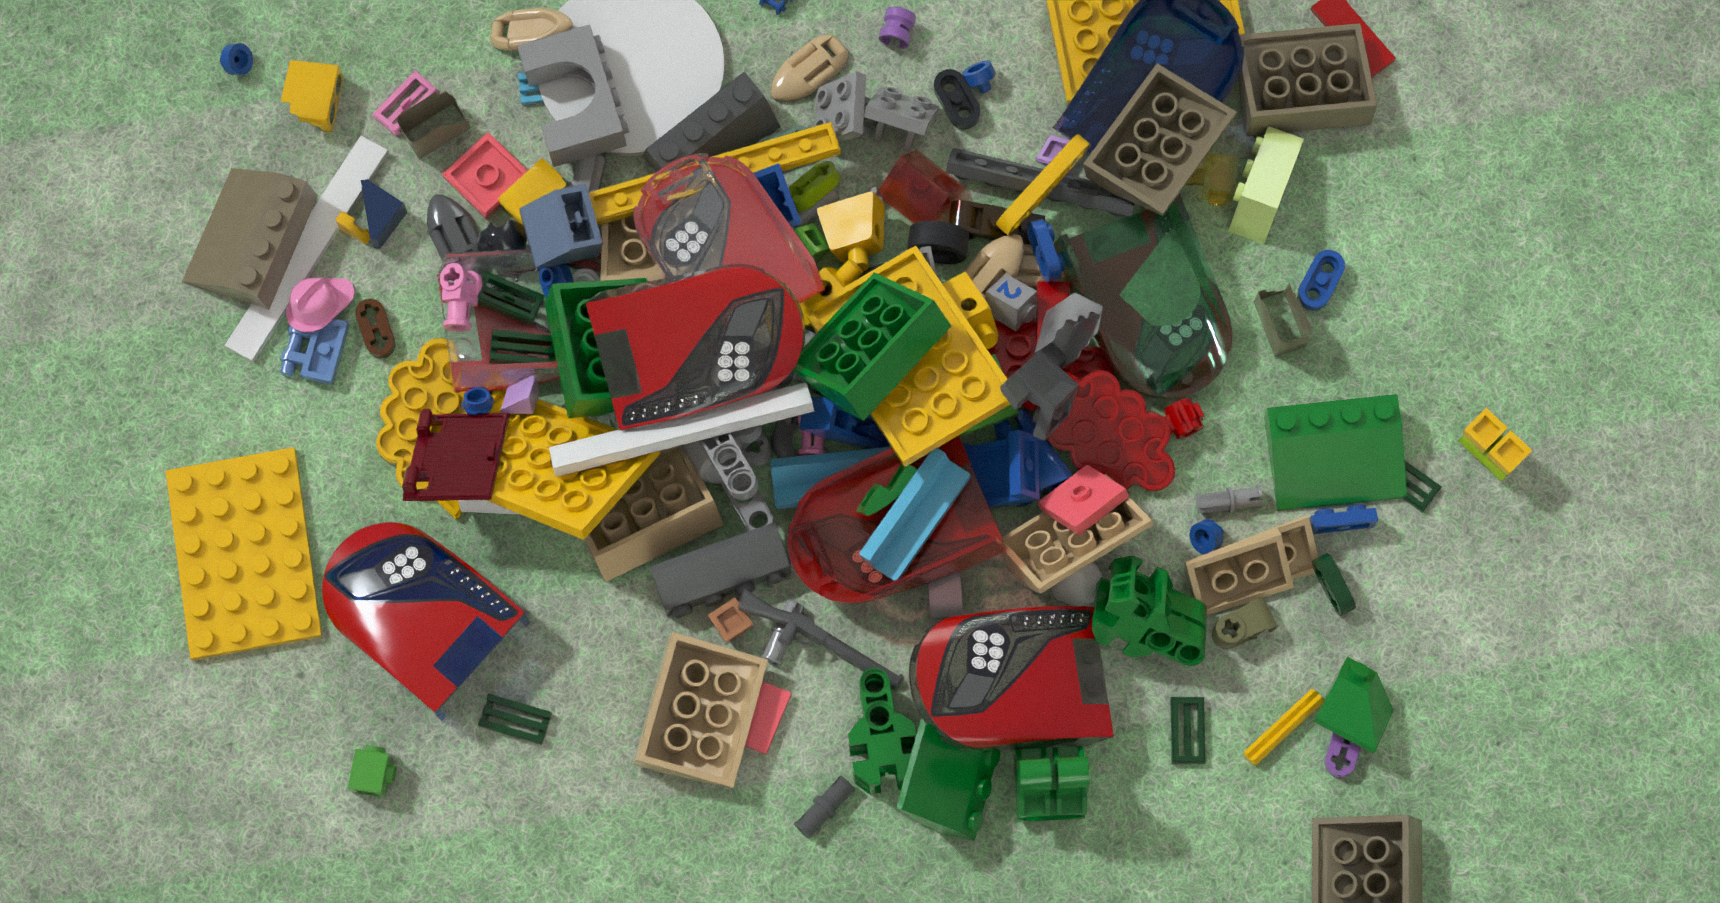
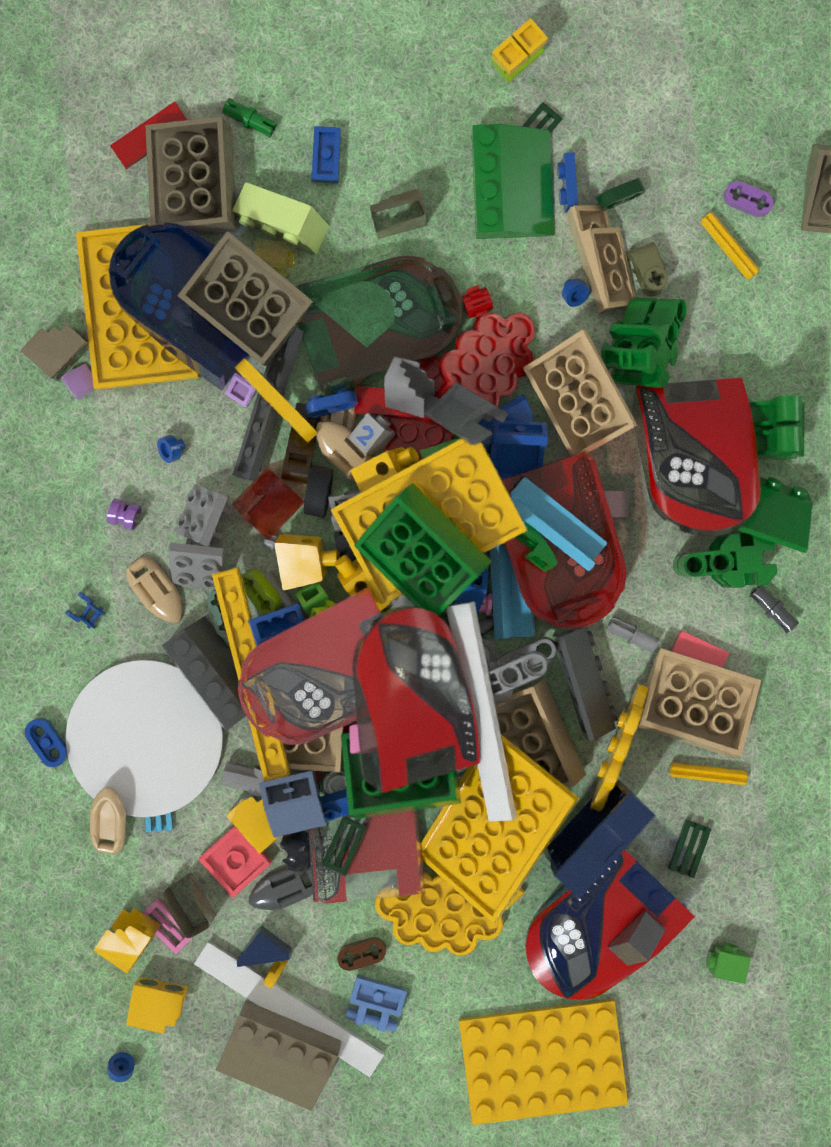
camera: 95 degrees left, 15 degrees up
(317, 302) = (338, 1000): bright pink piece -> none
(393, 59) = (129, 941): none -> yellow piece
(407, 641) = (638, 940): none -> dark grey slope
(457, 461) = (488, 896): dark red window -> none
(459, 296) = (345, 888): bright pink connector -> none
(477, 401) = (431, 877): blue plate -> none
(521, 348) = (379, 839): dark green tile -> none
(521, 397) = (433, 838): lavender slope -> none
(535, 580) = (596, 838): none -> dark blue tile
(598, 126) = (201, 767): light grey arch -> none
(610, 737) = (708, 773): none -> yellow axle
(641, 607) = (619, 747): none -> yellow plate
(730, 621) = (624, 676): nougat tile -> none
(799, 623) = (630, 625): dark grey piece -> none
(957, 100) = (190, 468): black plate -> none
(1083, 499) = (549, 386): coral plate -> none
(1188, 758) = (728, 331): dark green tile -> none
(1229, 500) = (545, 271): light grey axle -> none
(1320, 281) = (366, 181): blue plate -> none
(1349, 233) = (326, 154): none -> blue plate
(1356, 706) = (723, 186): green slope -> none
(1385, 143) = (249, 117): none -> green pin

